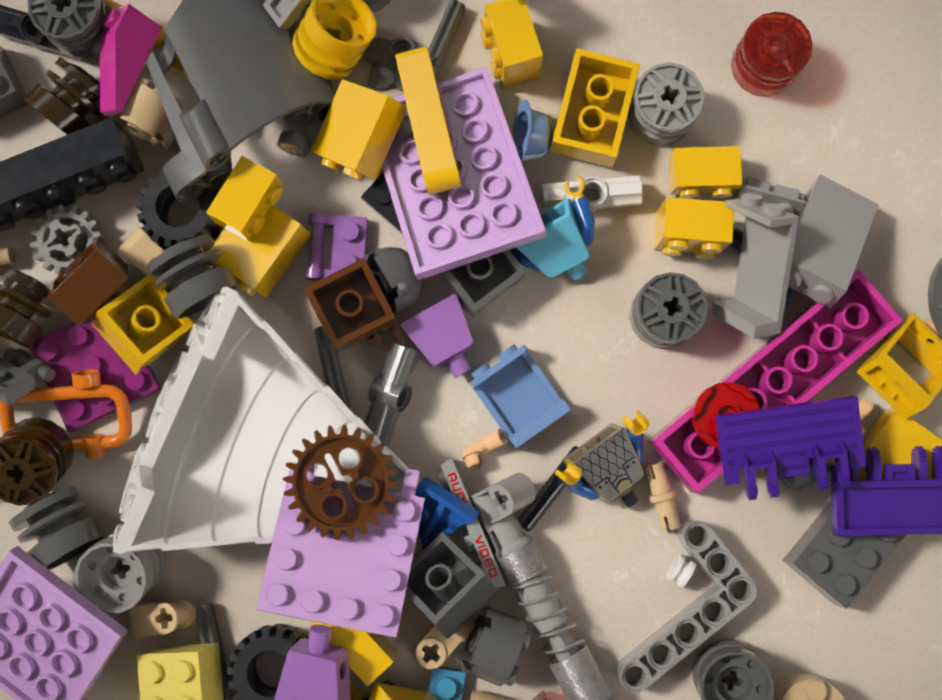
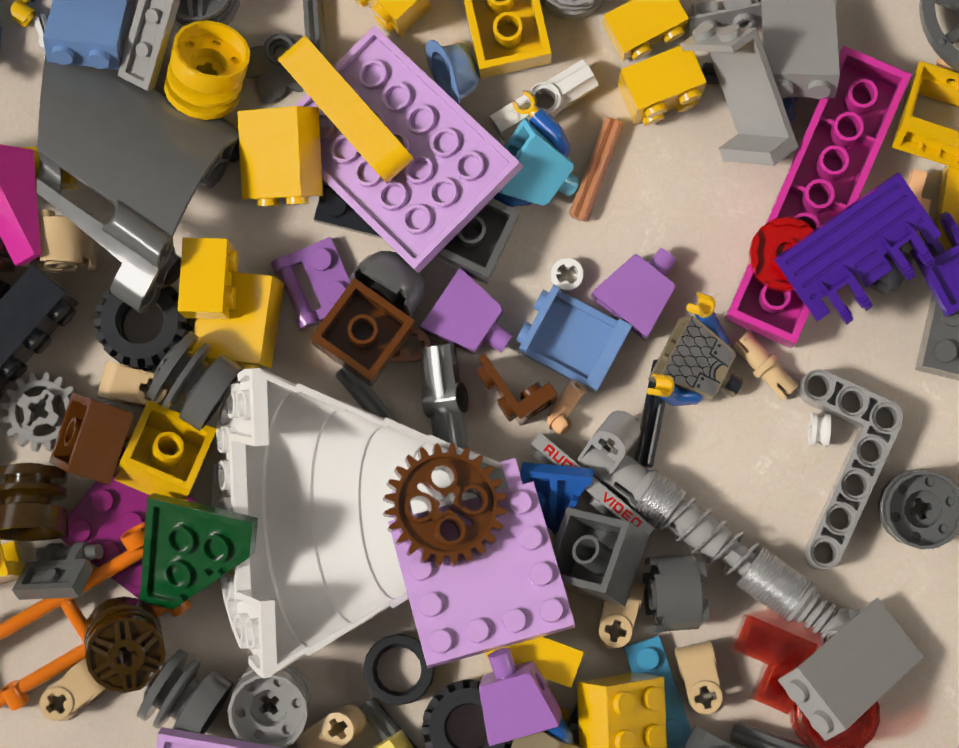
camera: 20 degrees left, 0 degrees up
(119, 410) = (190, 548): none -> dark green plate
(216, 595) = (371, 675): none -> black tyre
(294, 143) = (219, 199): dark grey tile -> none
(459, 430) = (533, 399): none -> reddish brown bracket
(545, 334) = (568, 264): none -> white bush
(590, 384) = (638, 291): none -> medium lavender torso
(605, 269) = (596, 169): none -> nougat axle
(650, 318) = (667, 197): dark grey wheel -> none

